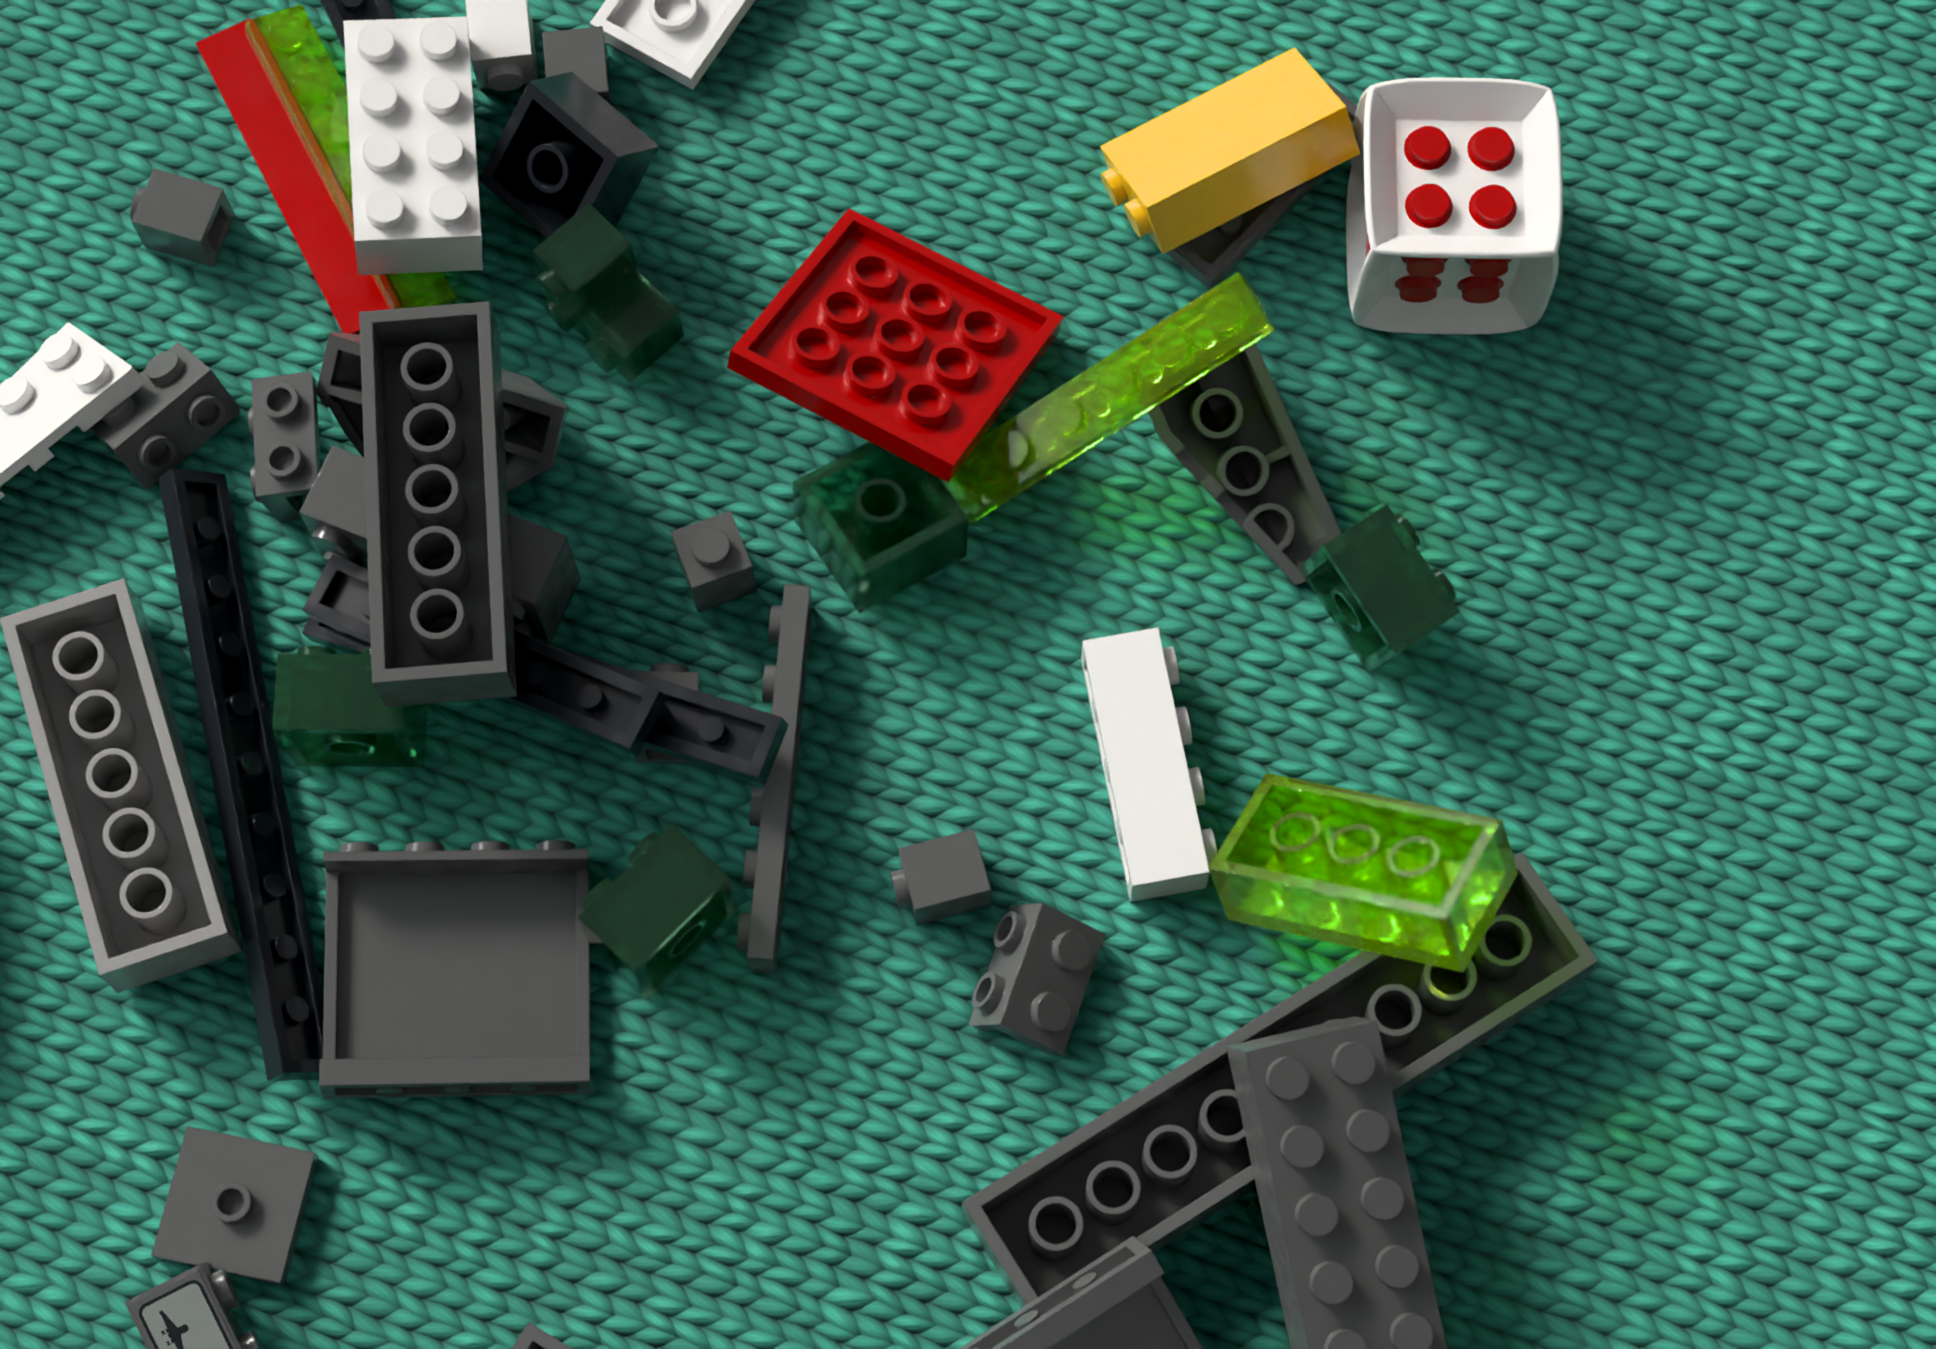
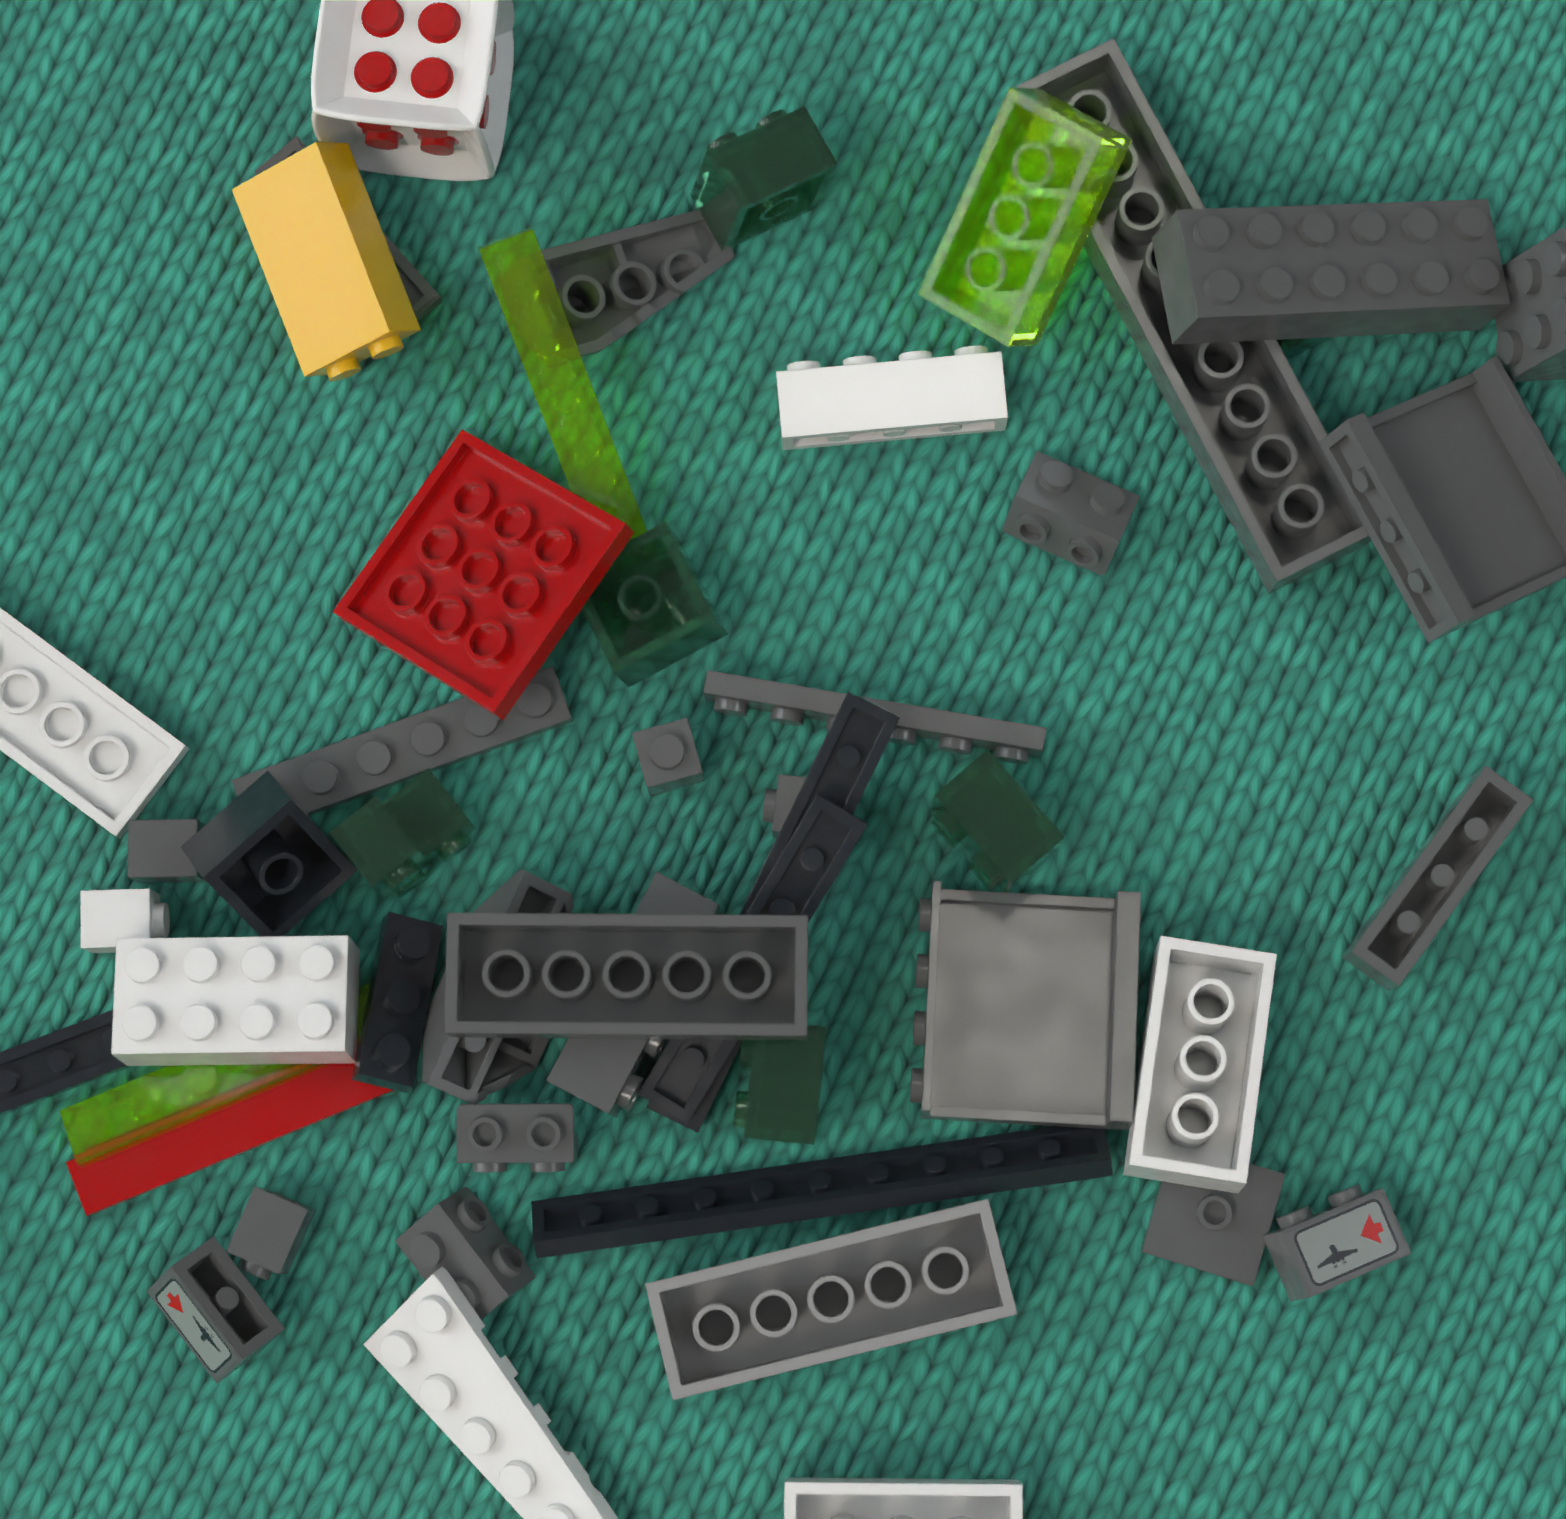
camera: 80 degrees left, 10 degrees up
(95, 167) = (215, 1309): none -> dark grey brick
(371, 290) = (397, 1002): none -> black plate
(391, 1162) = (1200, 1064): none -> white brick
(710, 307) = (413, 745): none -> dark grey plate
(941, 878) = (978, 582): dark grey brick -> none

